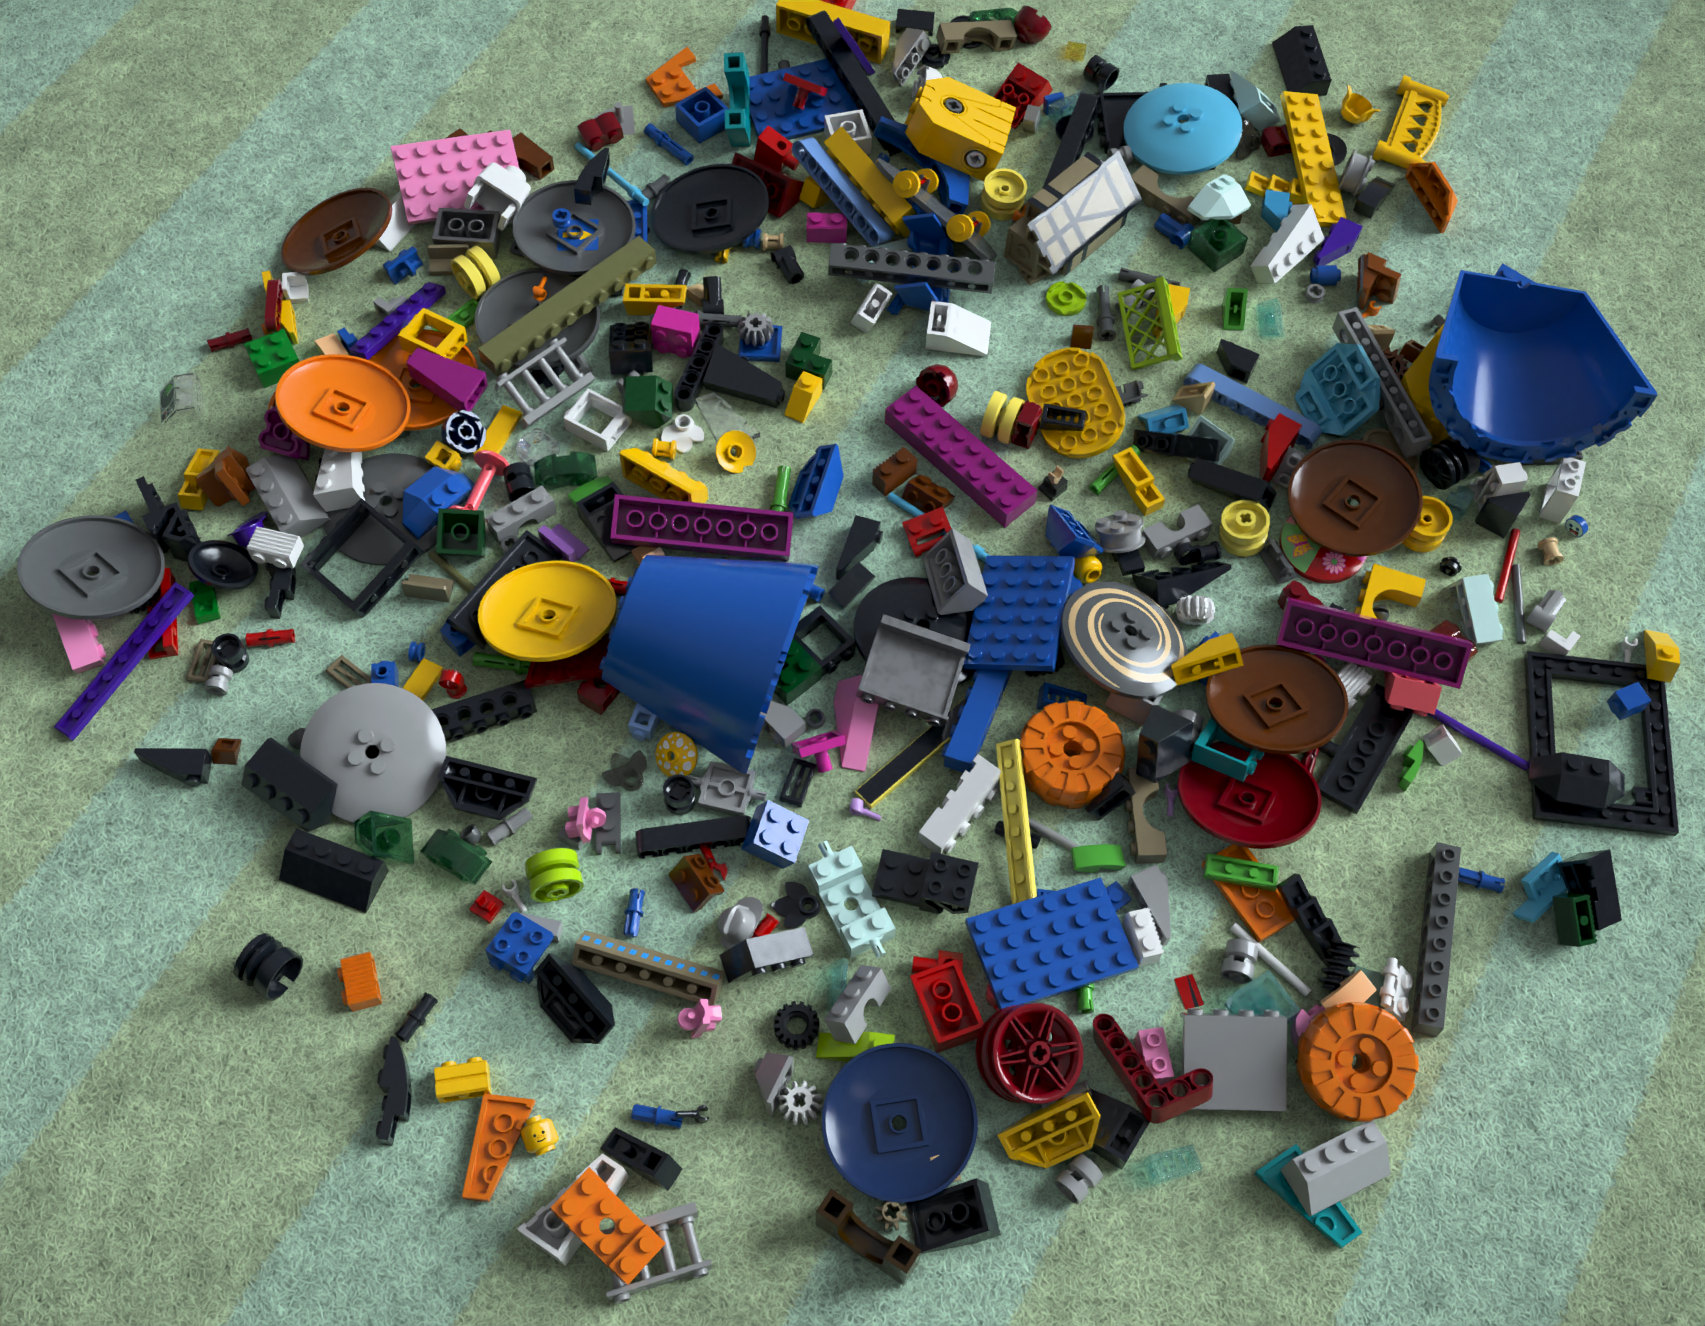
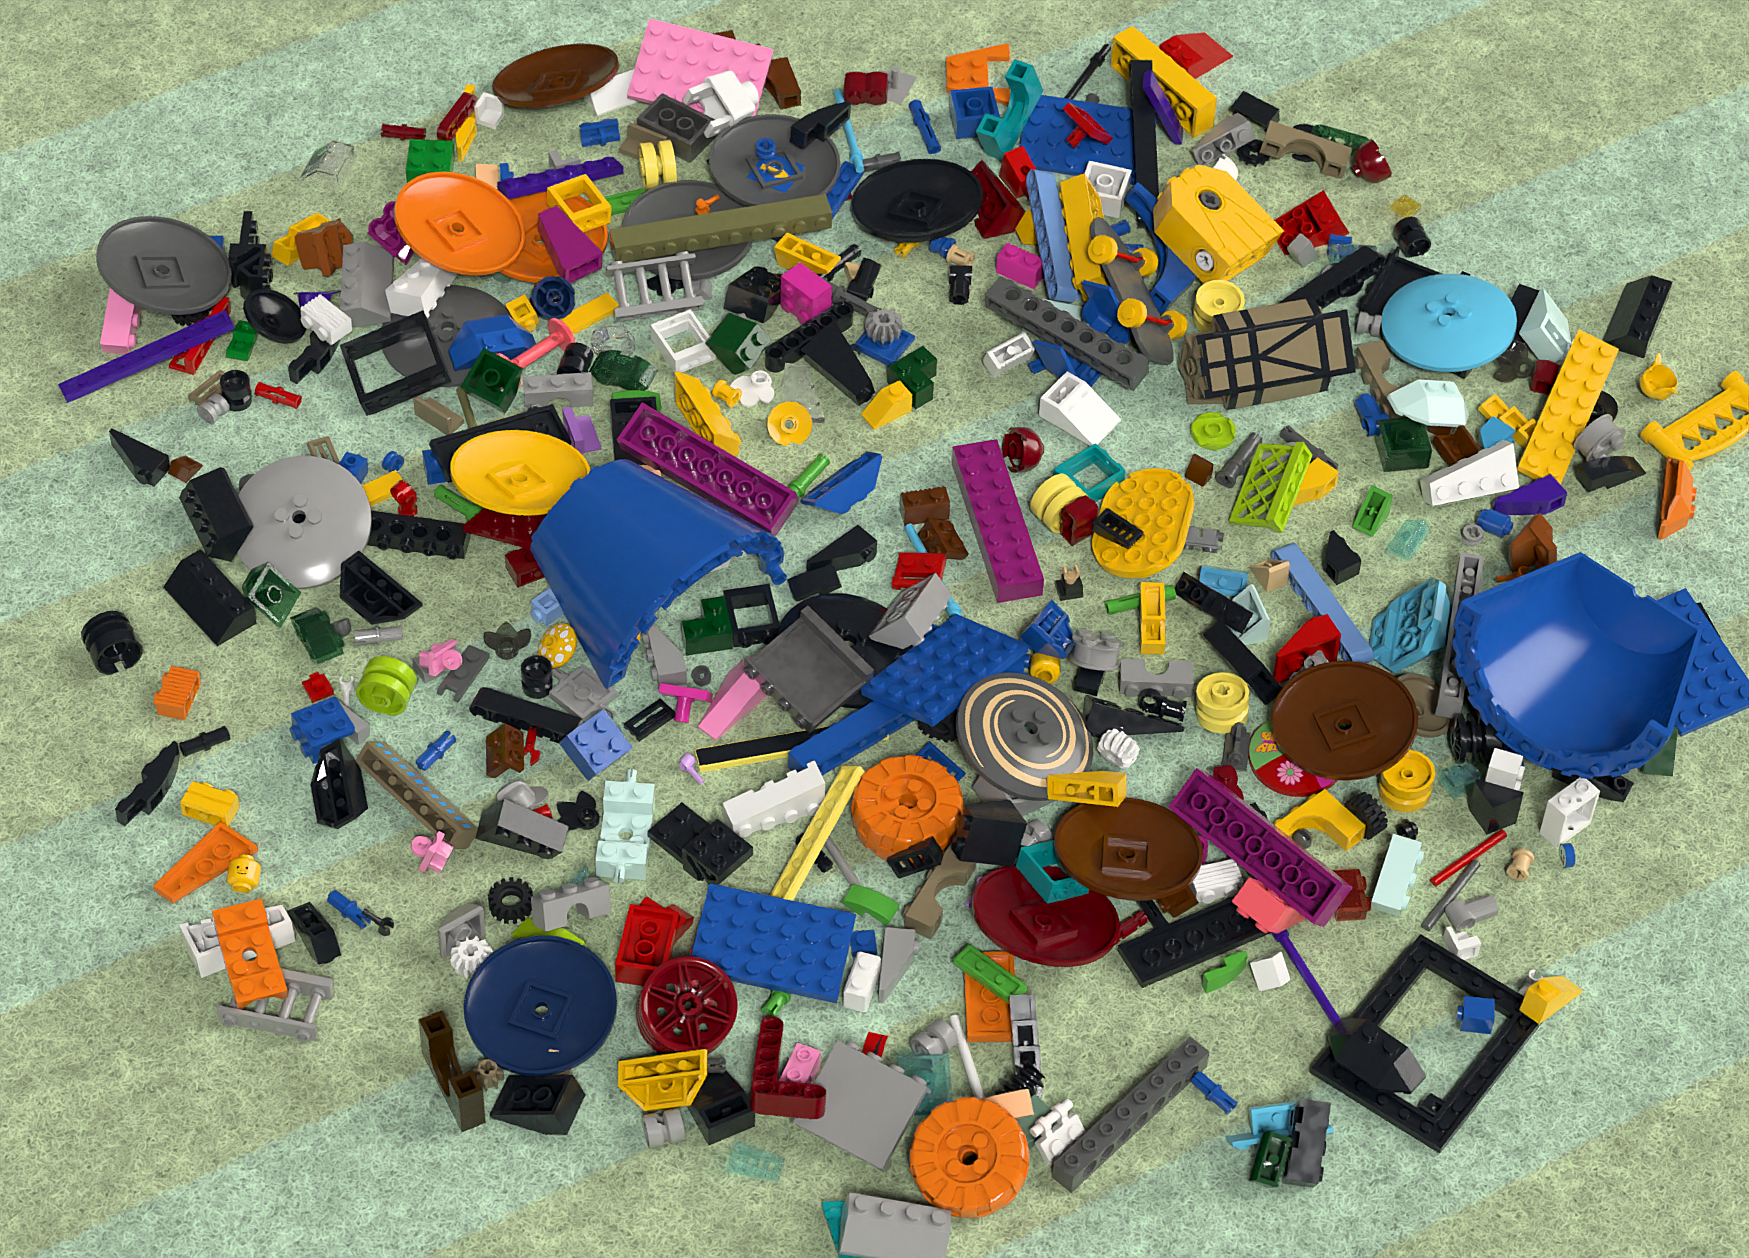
camera: 30 degrees right, 10 degrees down
(1002, 363) = (1102, 460): none -> teal window
(1258, 227) = (1456, 446): none -> reddish brown bracket
(1420, 566) = (1368, 813): none -> black tyre

